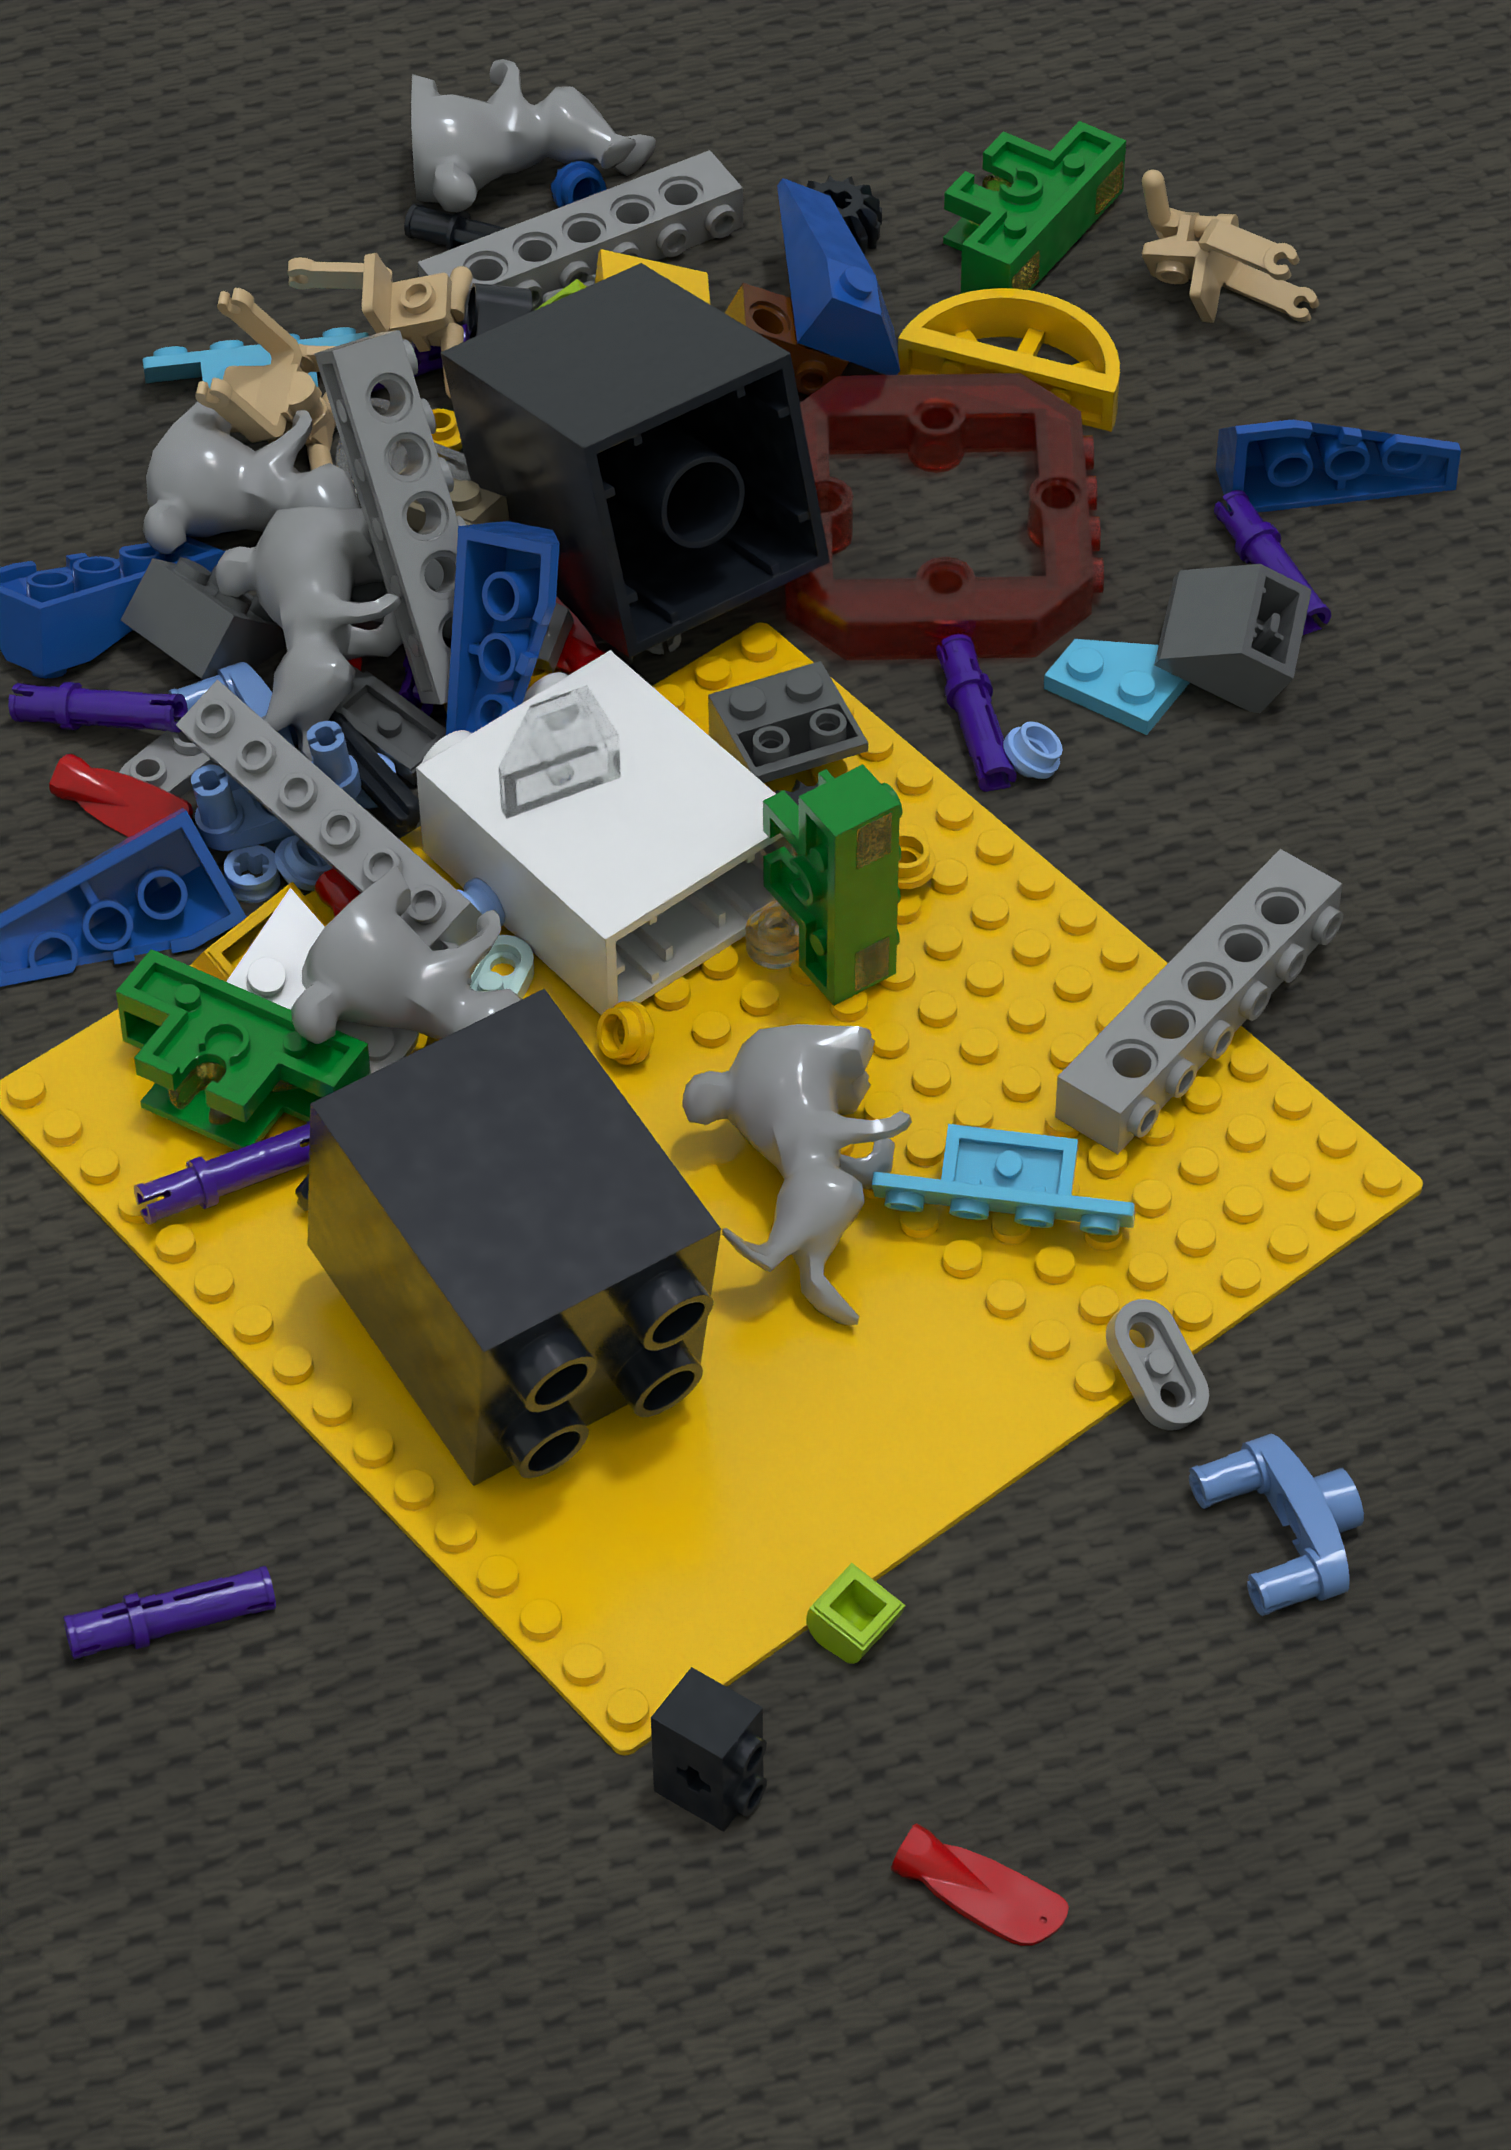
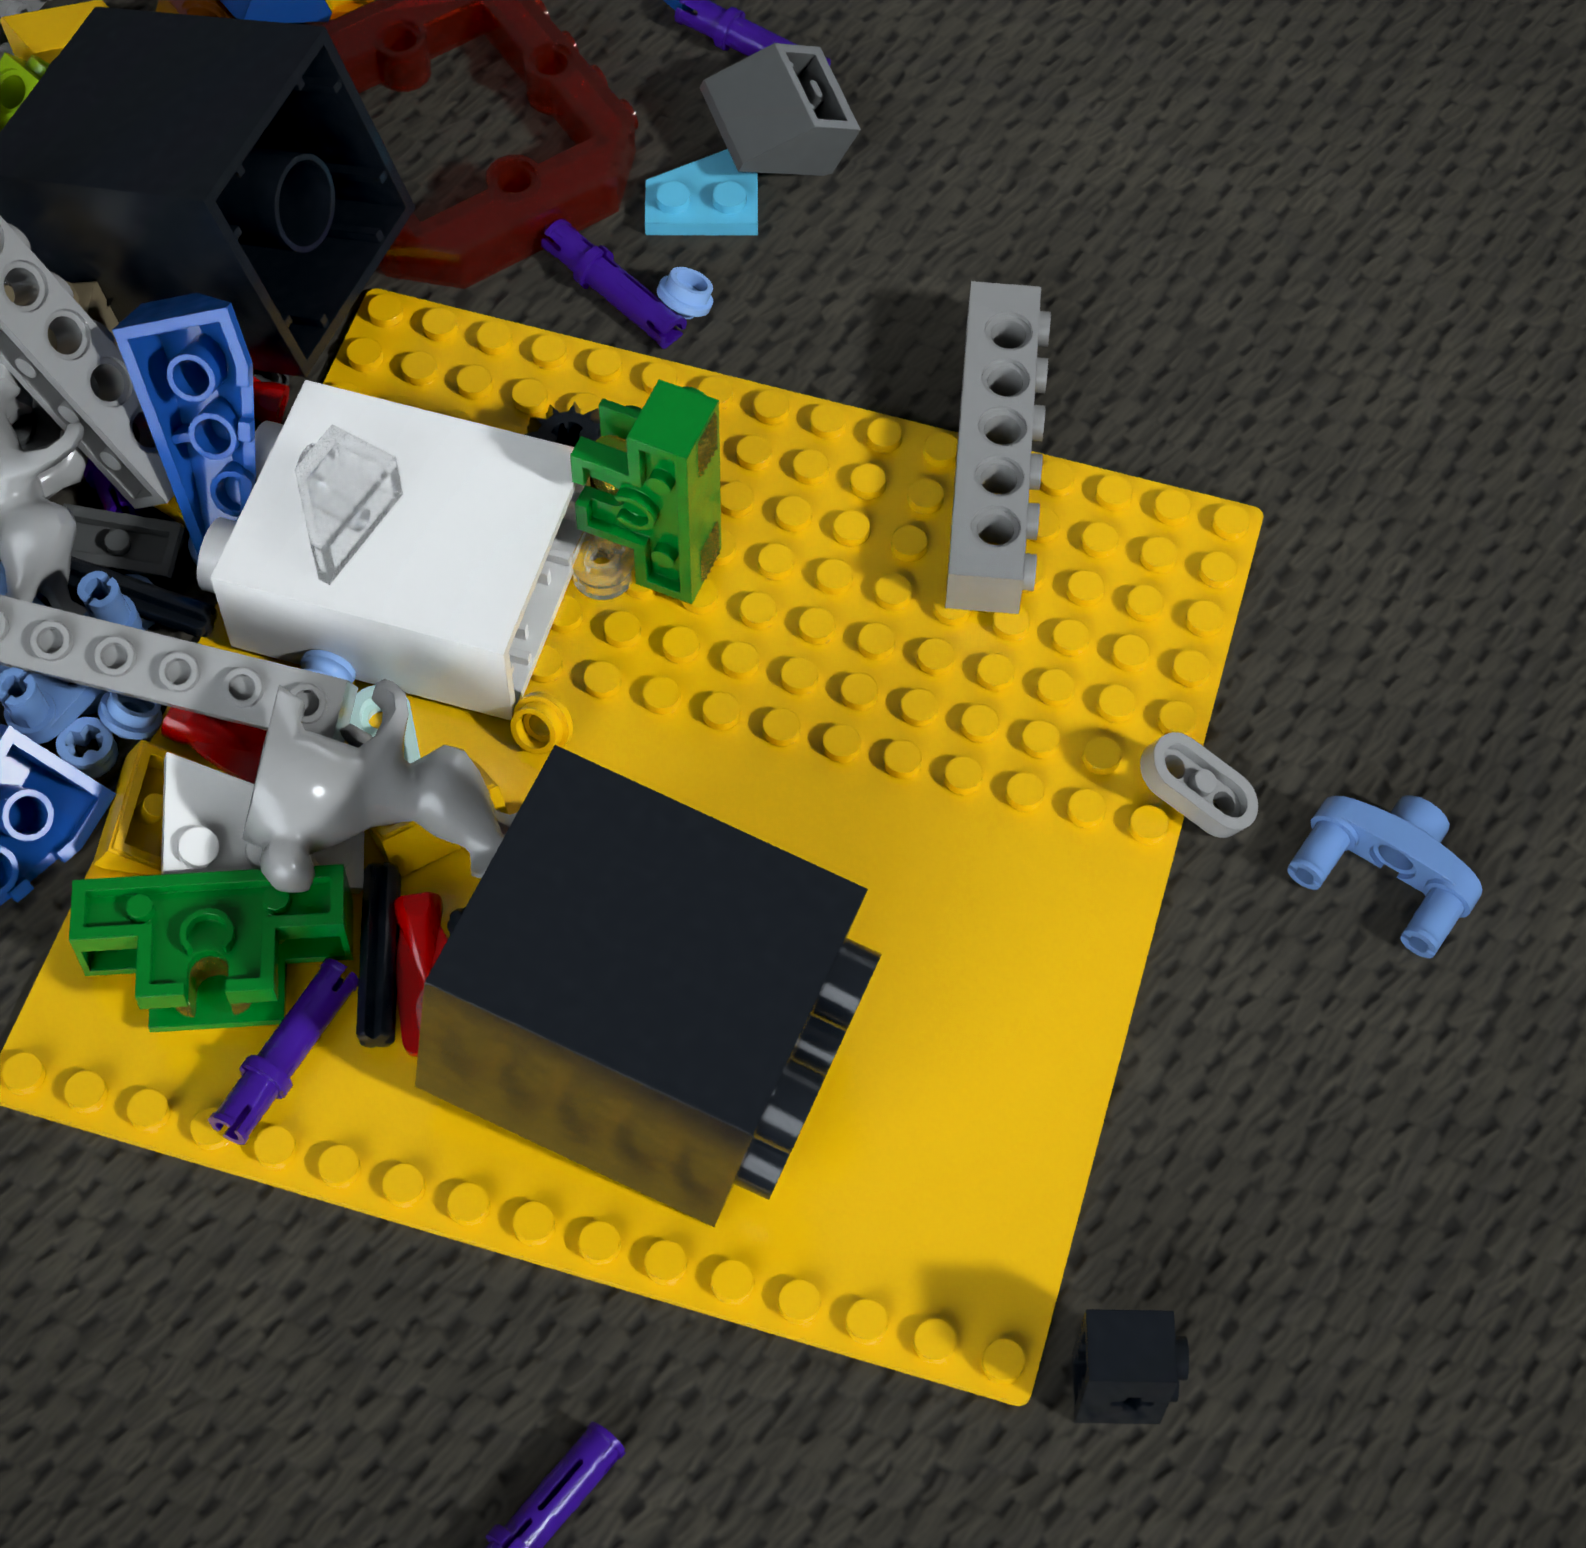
camera: 35 degrees left, 10 degrees up
(785, 723) = (486, 370): dark grey slope -> none
(789, 1106) = (743, 719): light grey animal -> none
(852, 1615) = (1128, 1157): lime brick -> none
(981, 1889) = (1406, 1344): red piece -> none
(1006, 1175) = (959, 680): medium azure bracket -> none

